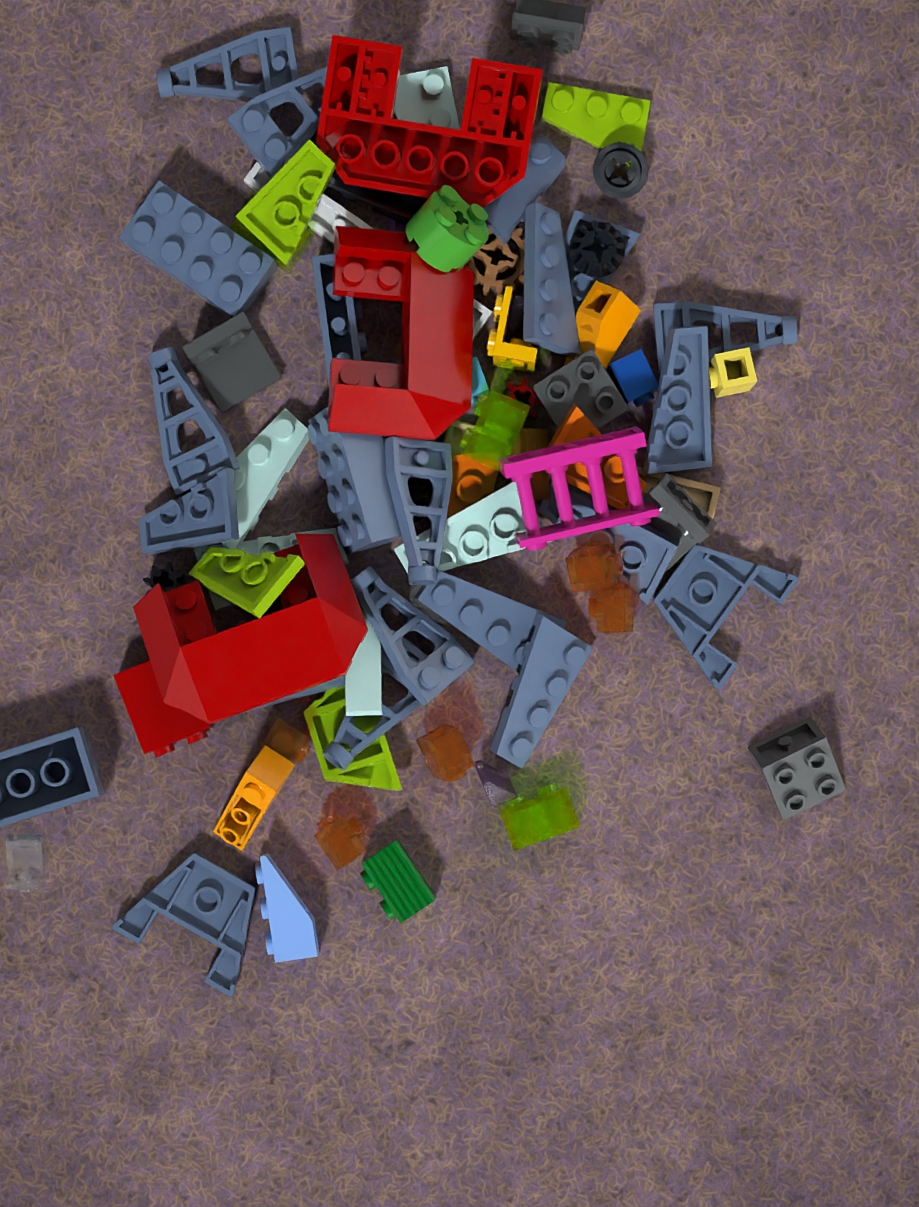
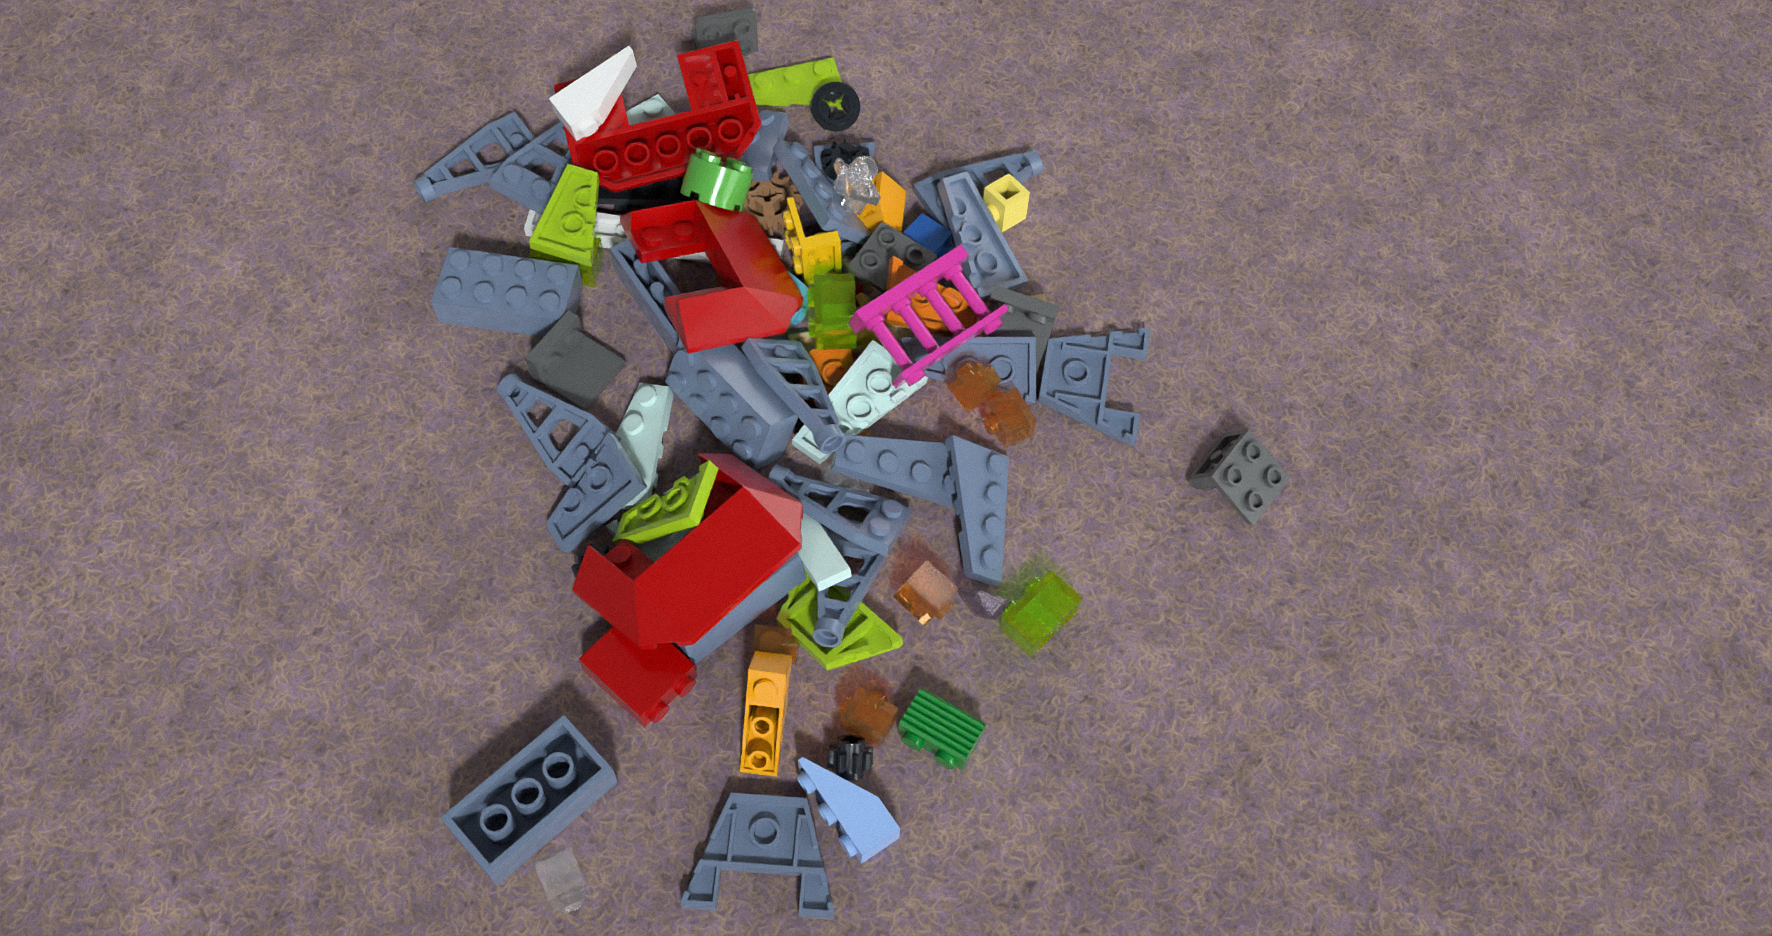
camera: 30 degrees left, 25 degrees down
(308, 869) = (850, 757): none -> black gear
(360, 78) = (591, 97): none -> white slope
(588, 291) = (856, 183): none -> clear hips

